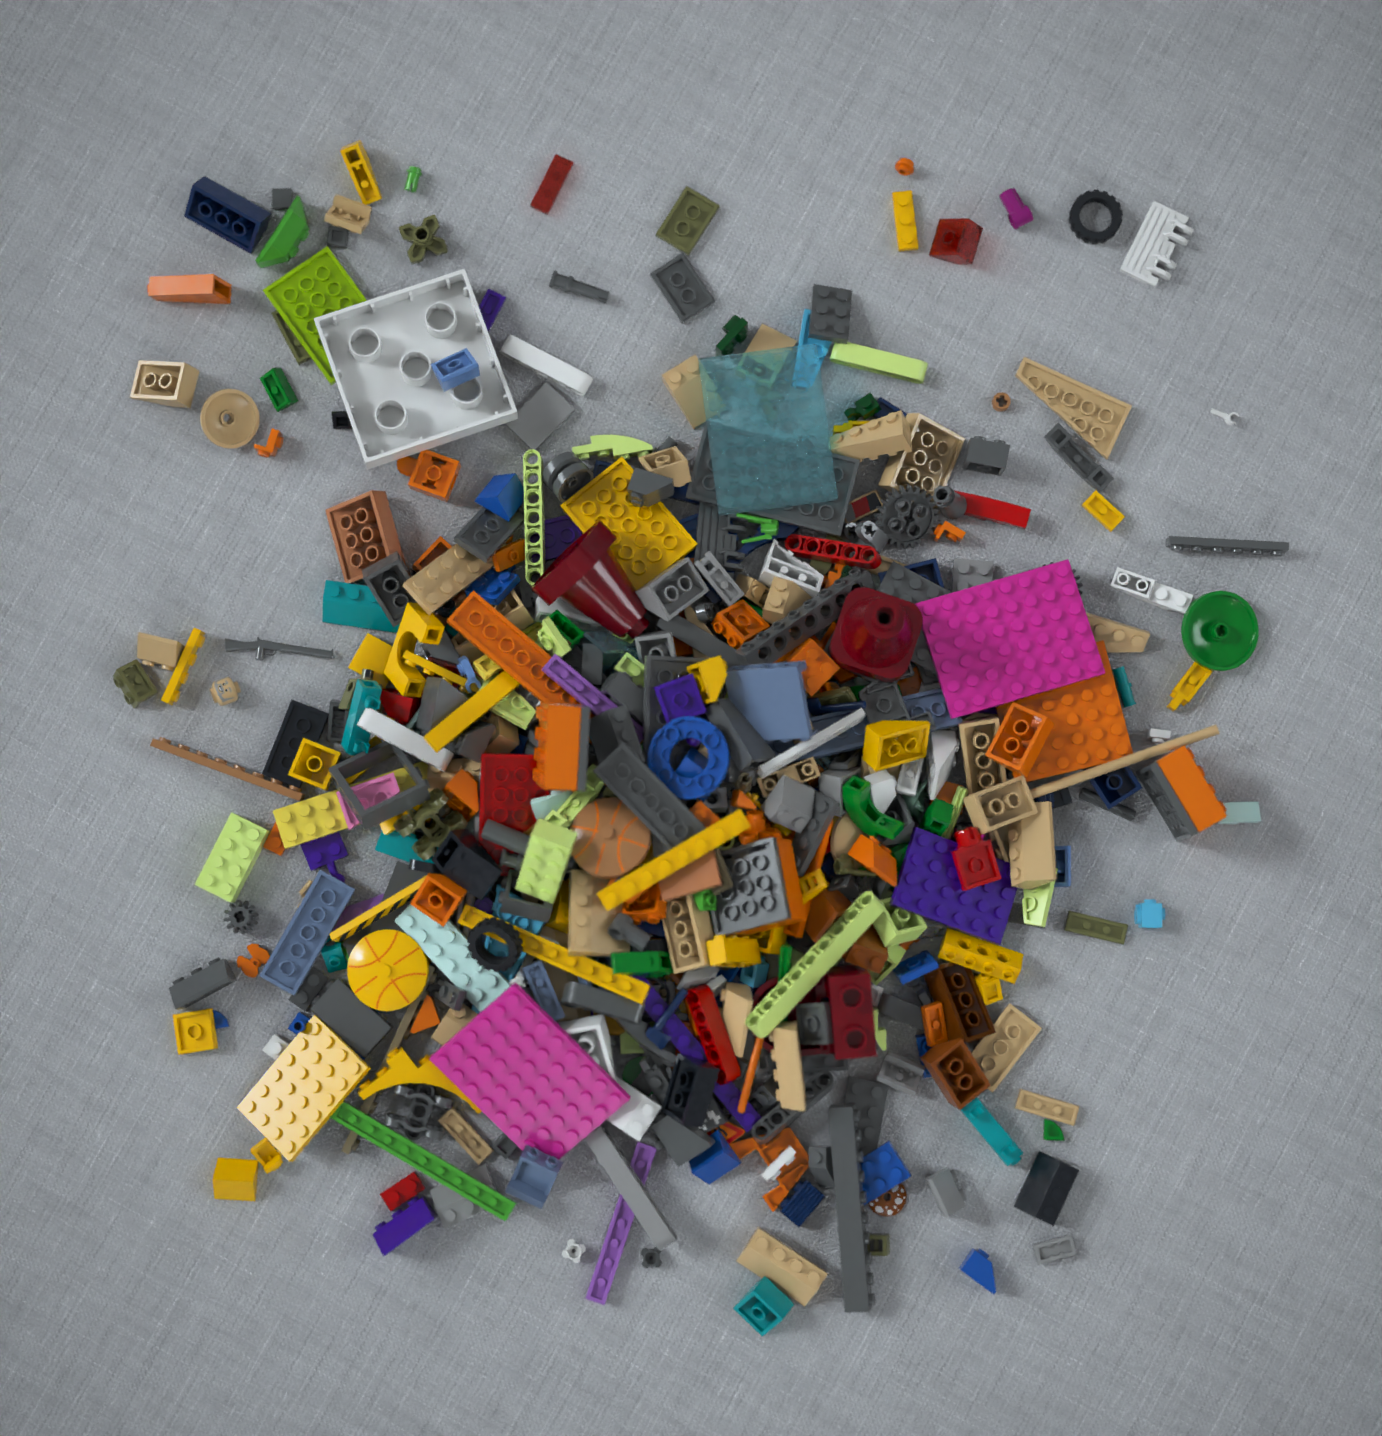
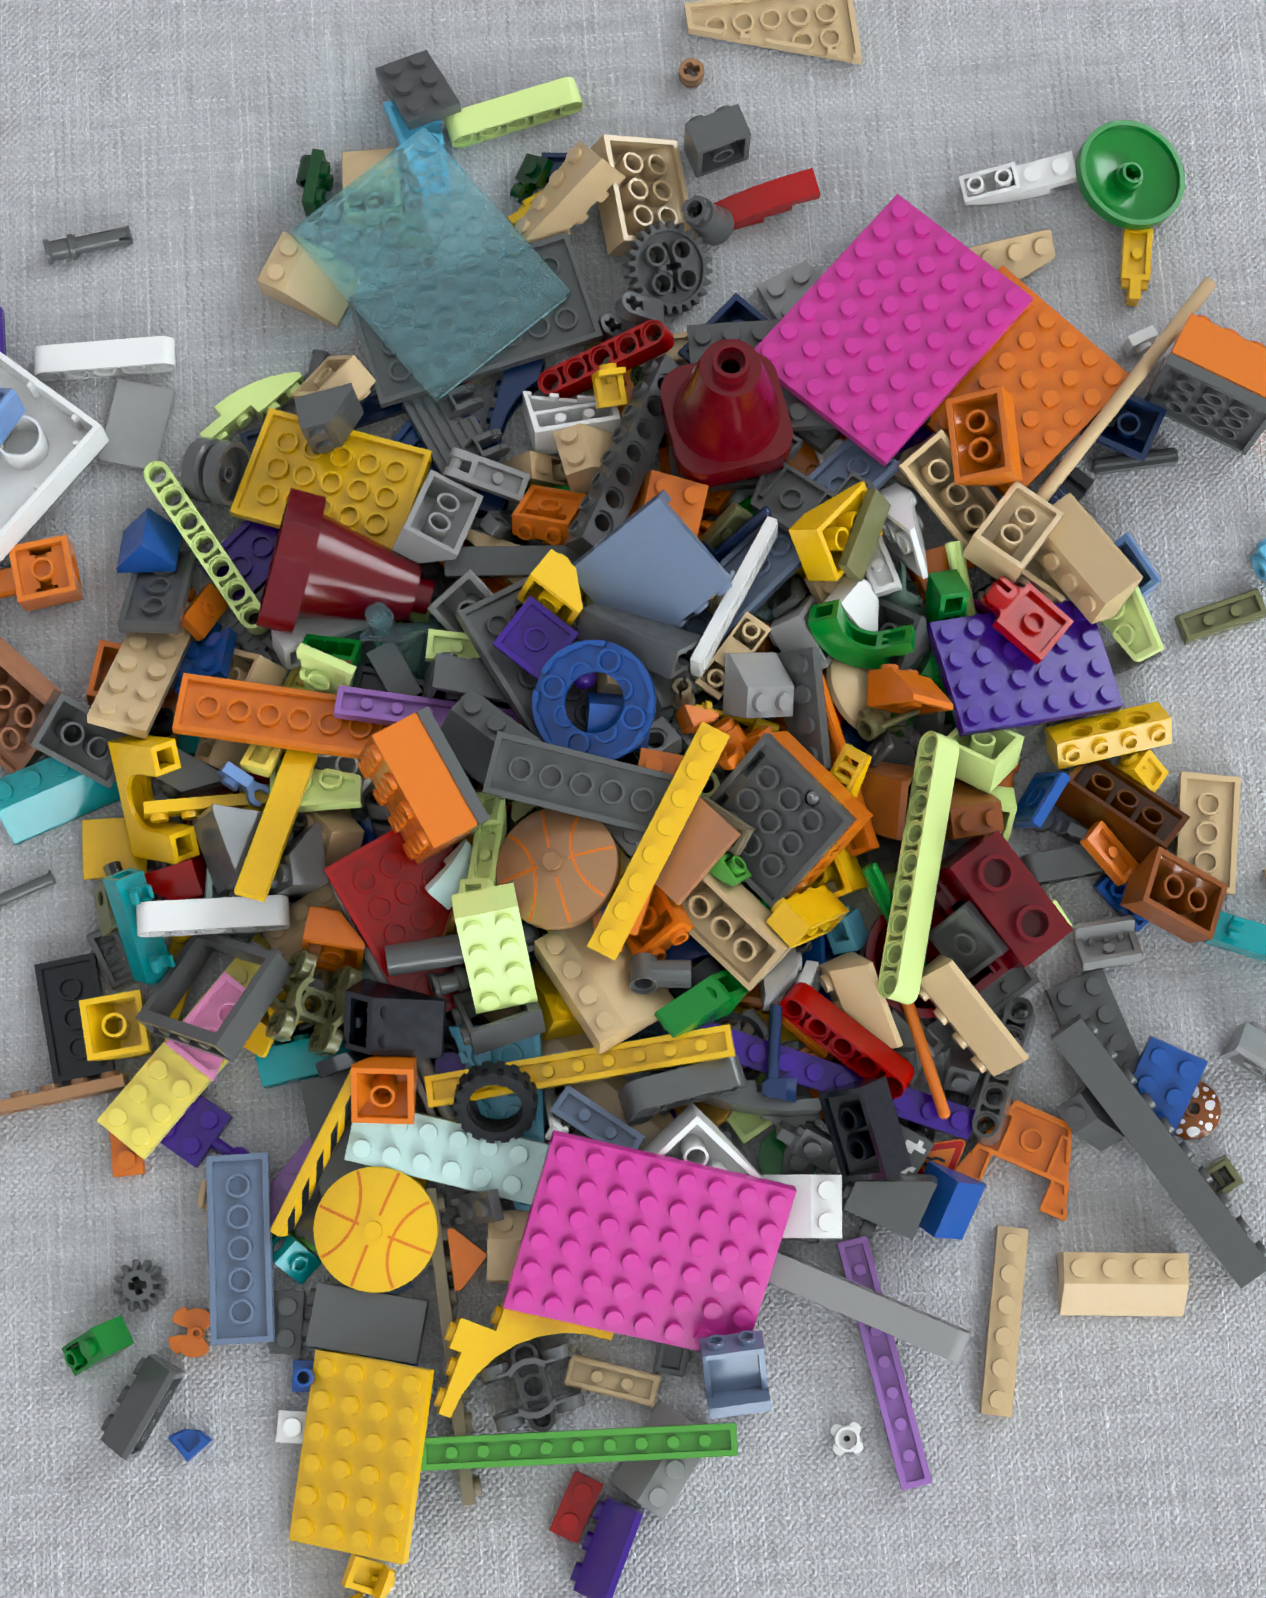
camera: 35 degrees left, 5 degrees down
(195, 1031) = (171, 1474): yellow tile -> none
(198, 935) = (97, 1345): none -> green slope
(232, 858) = (81, 1215): yellowish green brick -> none
(602, 627) = (379, 616): none -> clear light blue plate
(651, 1262) = (959, 1382): dark grey plate -> none
(682, 288) = (216, 169): dark grey tile -> none
(687, 220) = (172, 88): olive tile -> none
(702, 1244) = (1004, 1321): none -> tan plate
(763, 1306) = (1133, 1349): teal slope -> none
(768, 526) = (506, 376): bright green plant -> none
(785, 1157) = (1037, 1140): white plate -> none
(801, 1203) = (1093, 1185): dark blue brick -> none
(823, 570) = (609, 386): none -> yellow bracket
(863, 506) = (608, 289): slope -> none
(910, 754) = (864, 535): none -> olive tile
(952, 532) = (731, 255): orange bracket -> none
(1077, 459) = (825, 83): dark grey slope -> none
(1103, 511) = (897, 123): yellow plate -> none
(1124, 686) = (1063, 309): teal pin -> none
(1236, 546) = (1076, 70): dark grey plate -> none

